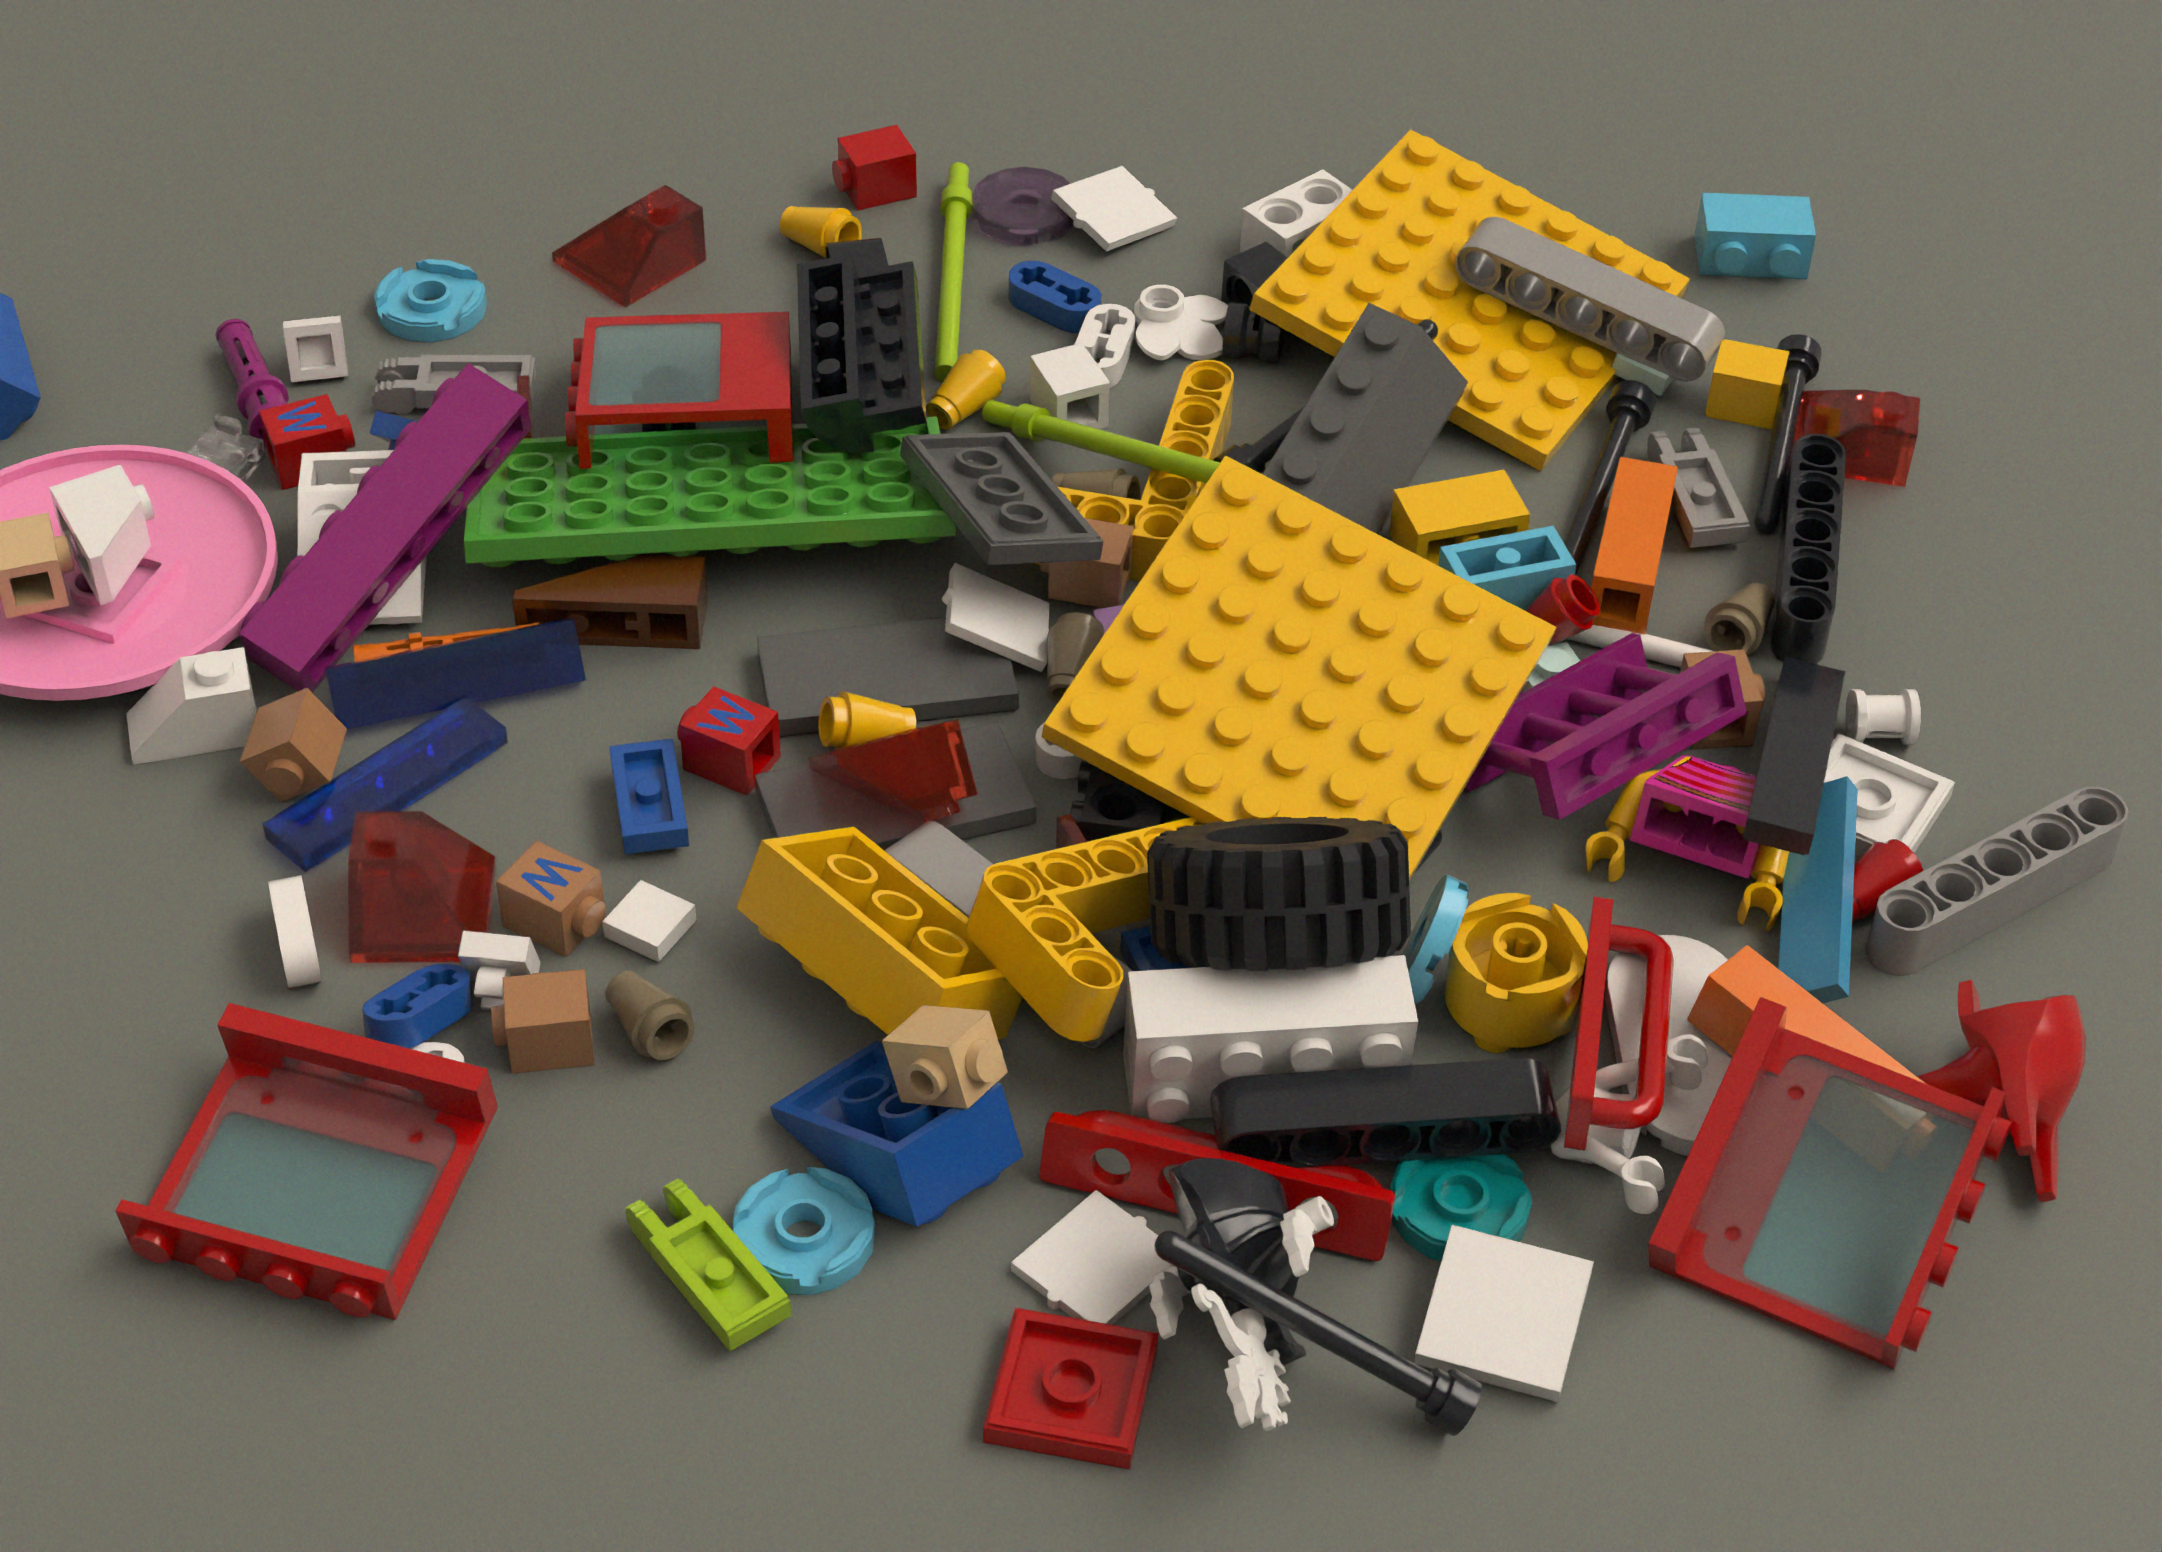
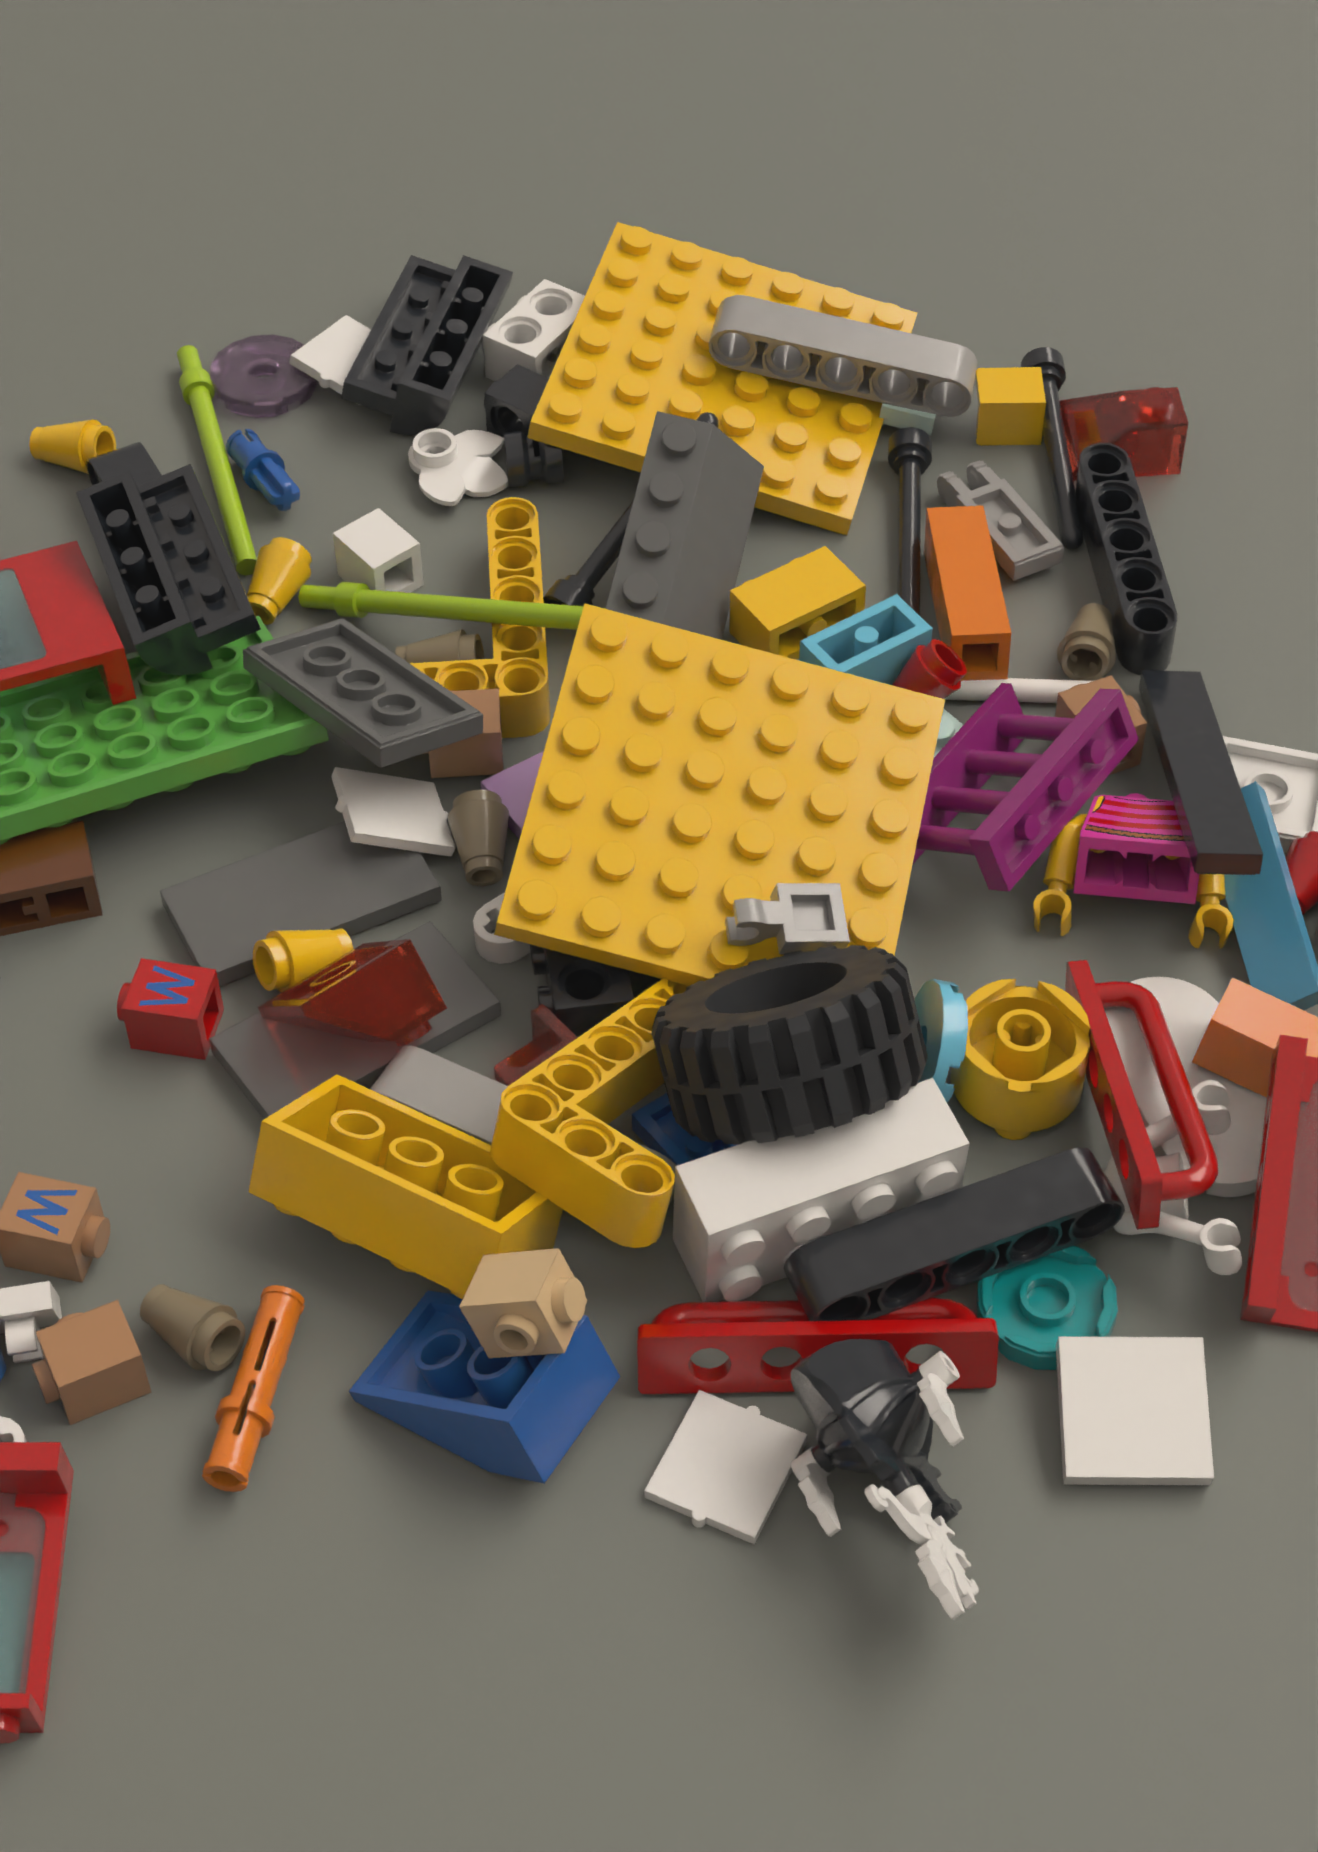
camera: 15 degrees left, 5 degrees up
(649, 796) = (110, 1089): blue plate -> none
(649, 921) = (156, 1222): white tile -> none
(670, 1099) = (238, 1441): none -> orange pin
(710, 1266) = (350, 1583): lime hinge -> none
(815, 1261) = (436, 1552): medium azure tile -> none
(876, 167) = (106, 368): red brick -> none
(990, 288) = (262, 469): none -> blue axle
(1052, 295) = (328, 463): blue beam -> none
(1071, 1388) = (751, 1609): red tile -> none
(1113, 348) = (401, 503): white beam -> none
(1187, 203) = (426, 341): none -> black brick
(1333, 785) = (798, 916): none -> light grey plate
(1444, 1396) = (1113, 1516): black piece -> none
(1754, 235) = (961, 257): medium azure brick -> none
(1883, 716) = (1252, 708): white bush -> none

